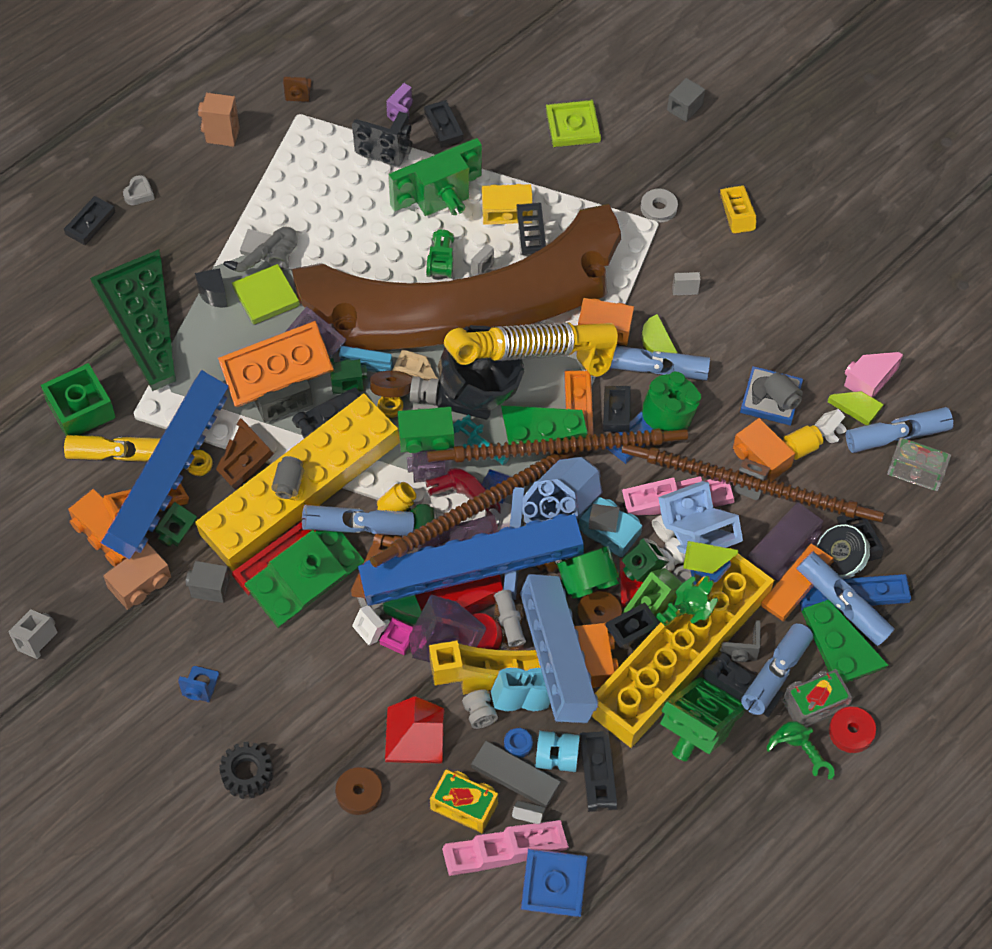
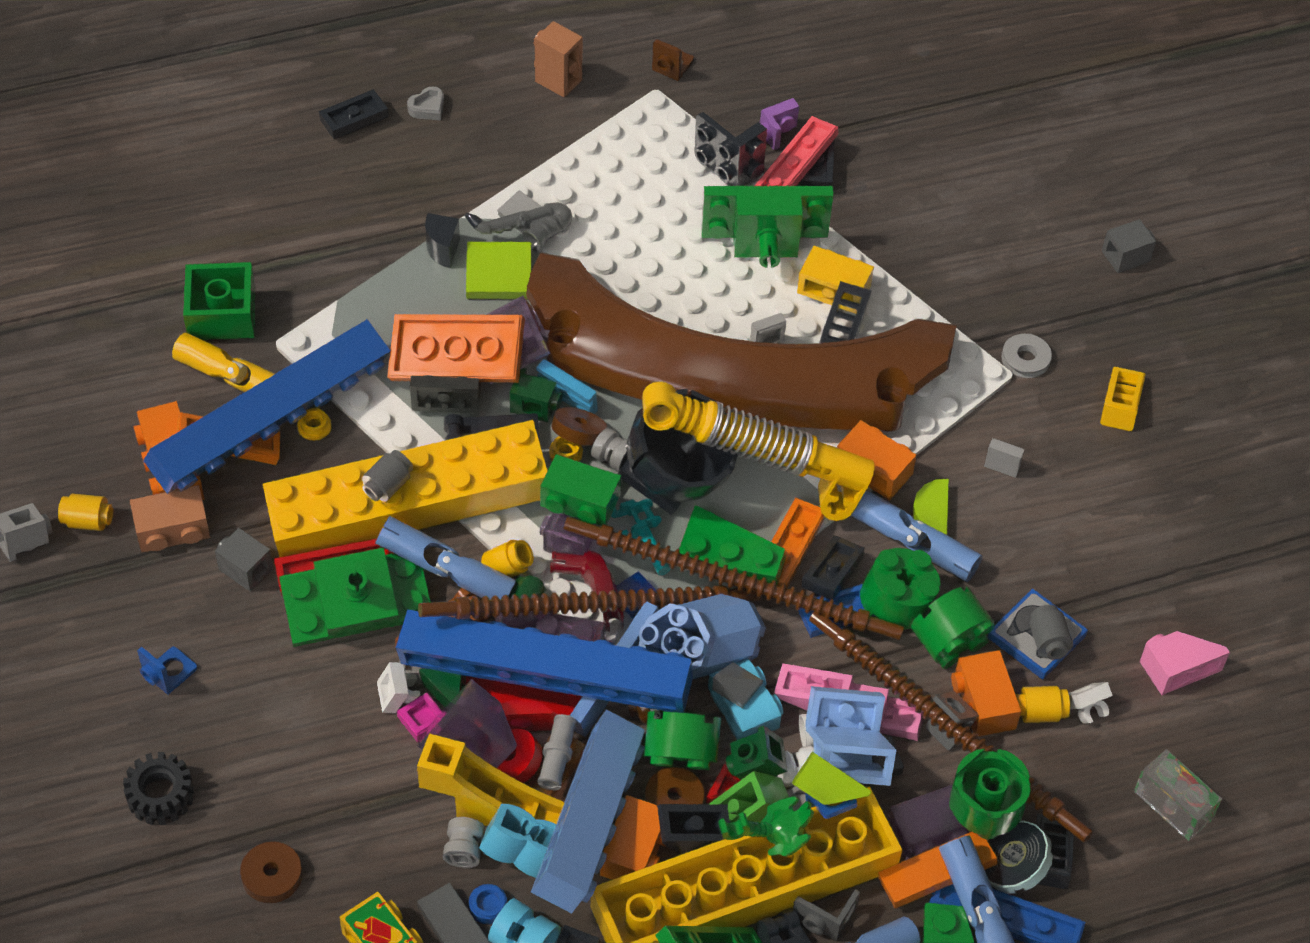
camera: 25 degrees right, 5 degrees down
(71, 598) = (85, 512): none -> yellow brick
(138, 309) = (347, 230): dark green wing -> none
(175, 516) = (245, 469): dark green brick -> none
(243, 455) = (365, 435): reddish brown wing -> none
(414, 365) = (617, 415): tan tile -> none
(414, 732) = (375, 835): red slope -> none
(430, 125) = (800, 154): none -> coral tile
(441, 255) = (722, 307): green connector -> none
(573, 123) = (975, 221): lime tile -> none
(720, 415) = (953, 626): none -> green brick
(810, 516) = (990, 792): none -> green brick
(857, 405) = (1141, 692): lime tile -> none
(882, 434) = (1150, 738): medium blue piece -> none

